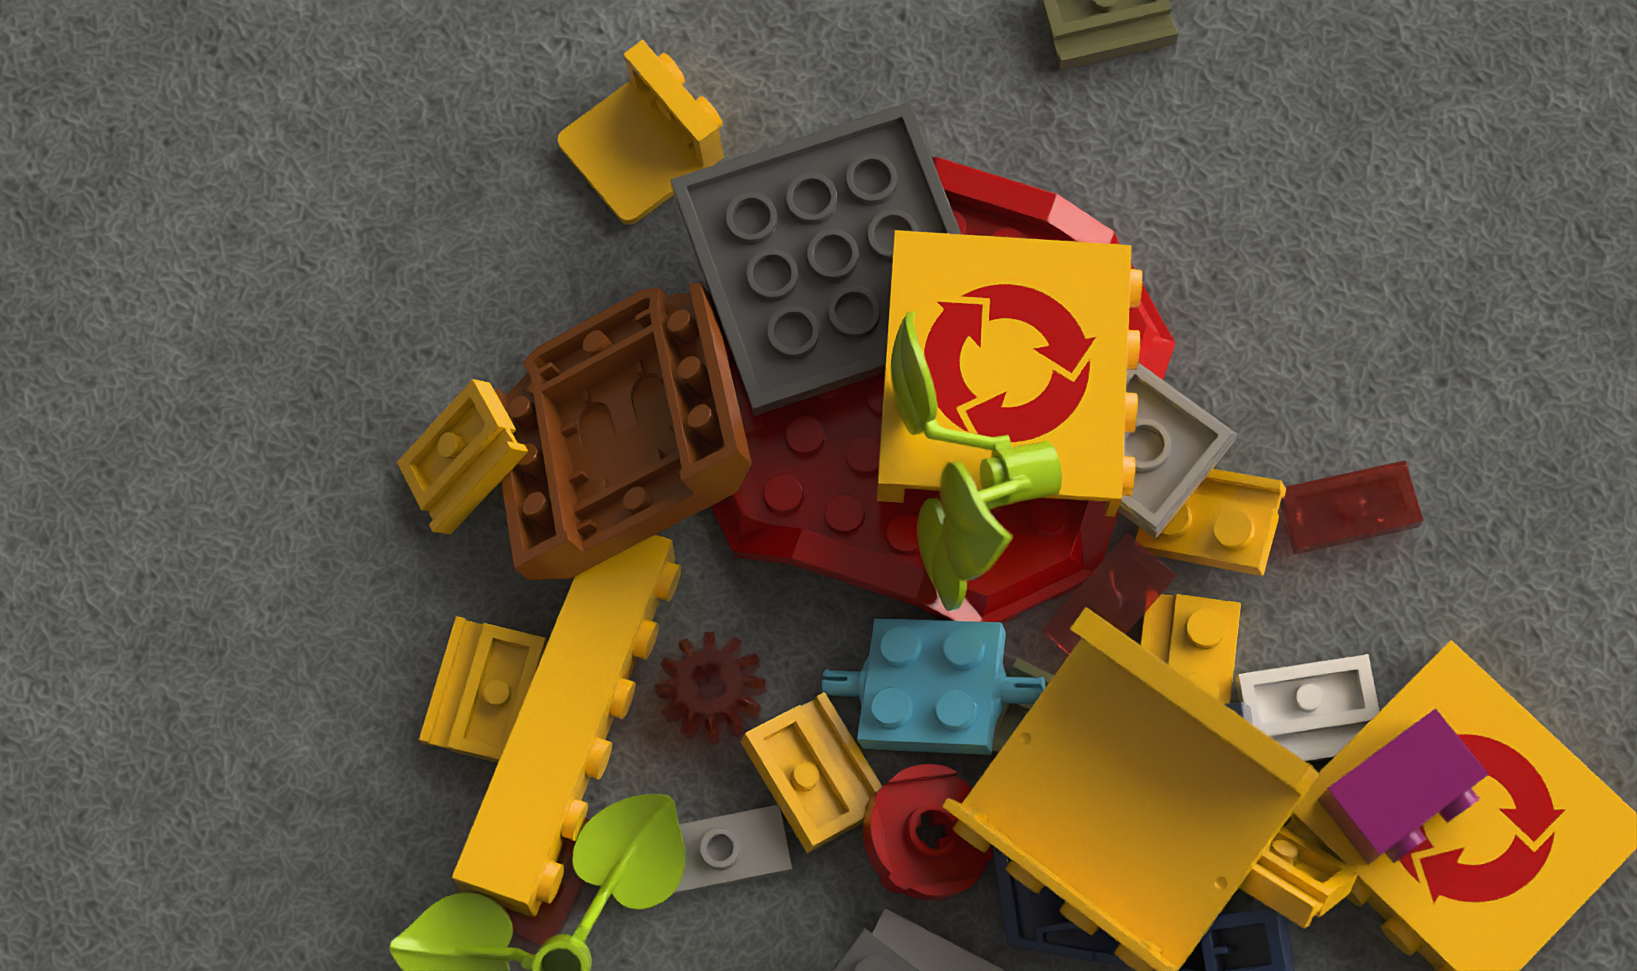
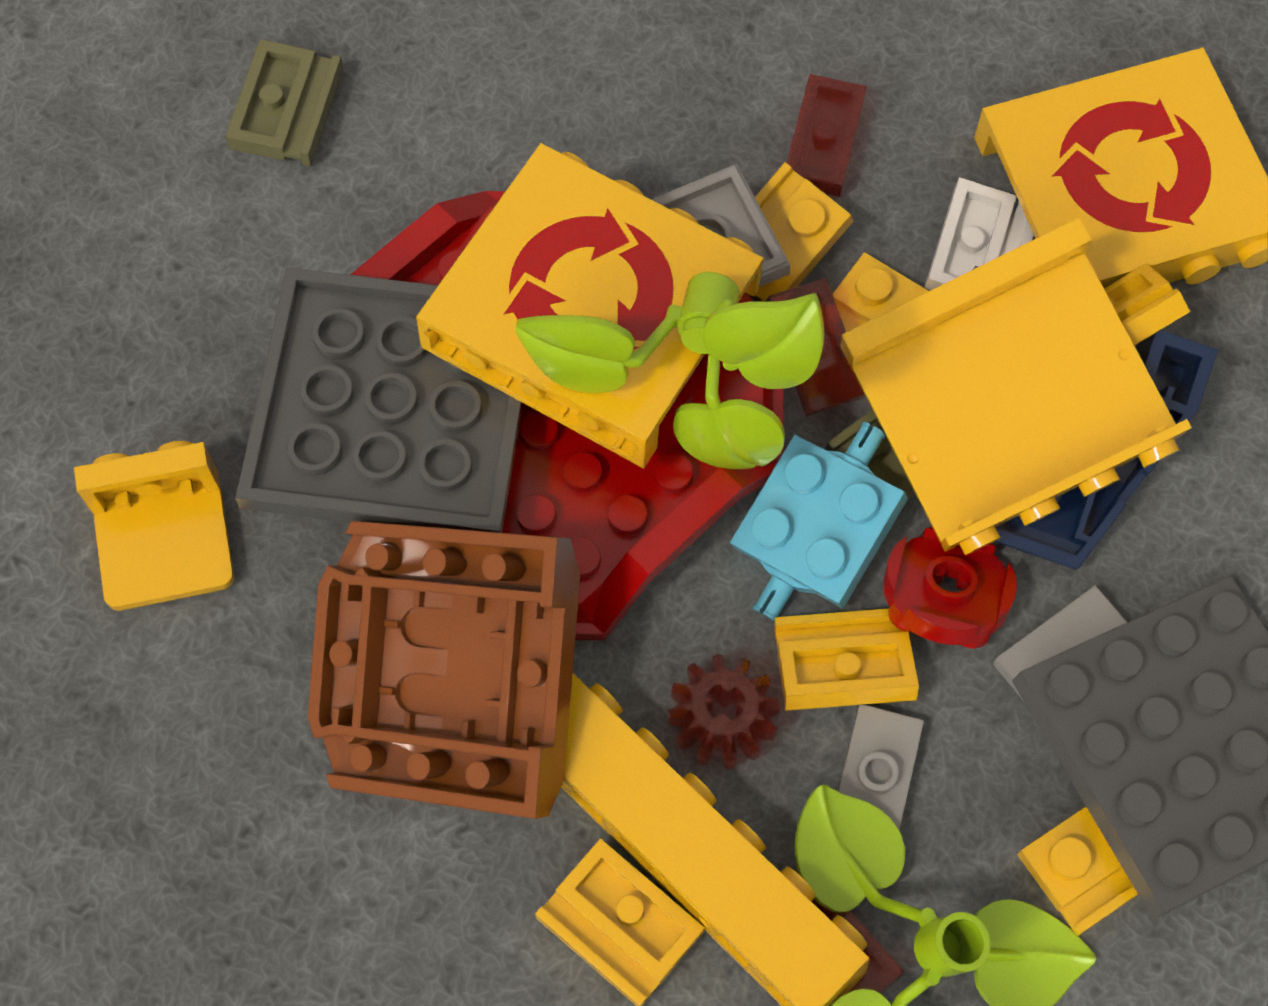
camera: 70 degrees left, 5 degrees down
(461, 456) = (382, 832): yellow plate -> none
(1403, 787) = (1097, 176): magenta brick -> none

